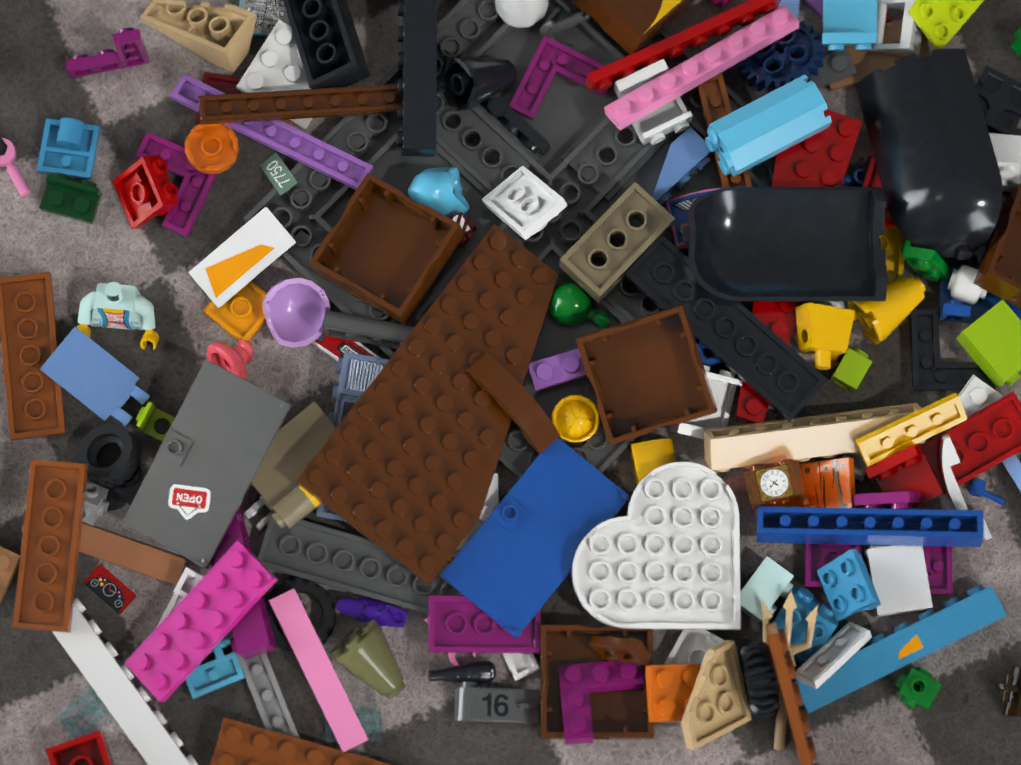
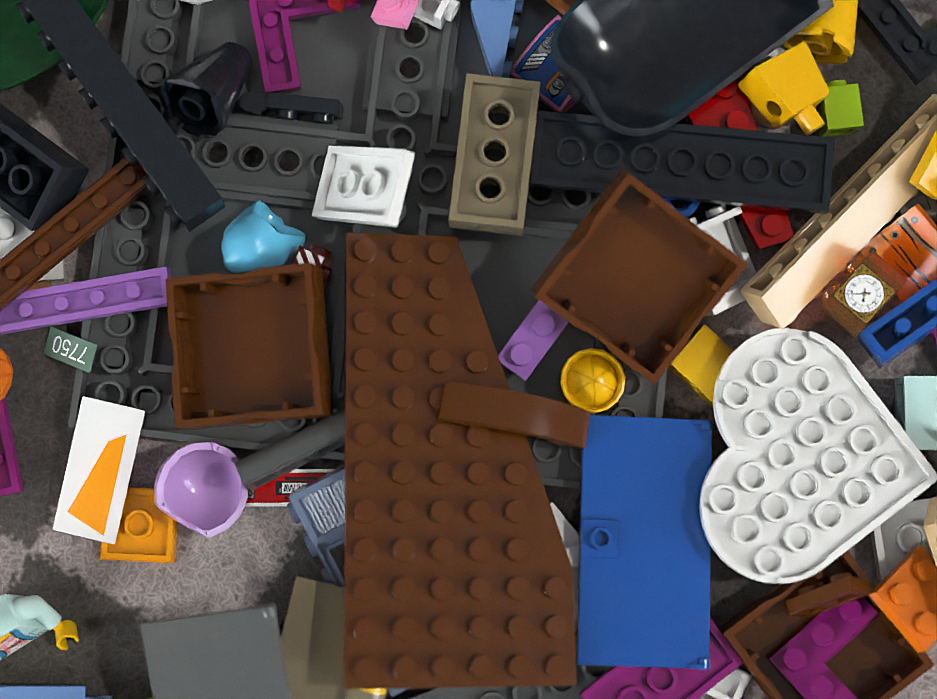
camera: 30 degrees left, 5 degrees up
(230, 357) = (172, 593): coral hair -> none
(573, 306) = (495, 257): green hair -> none

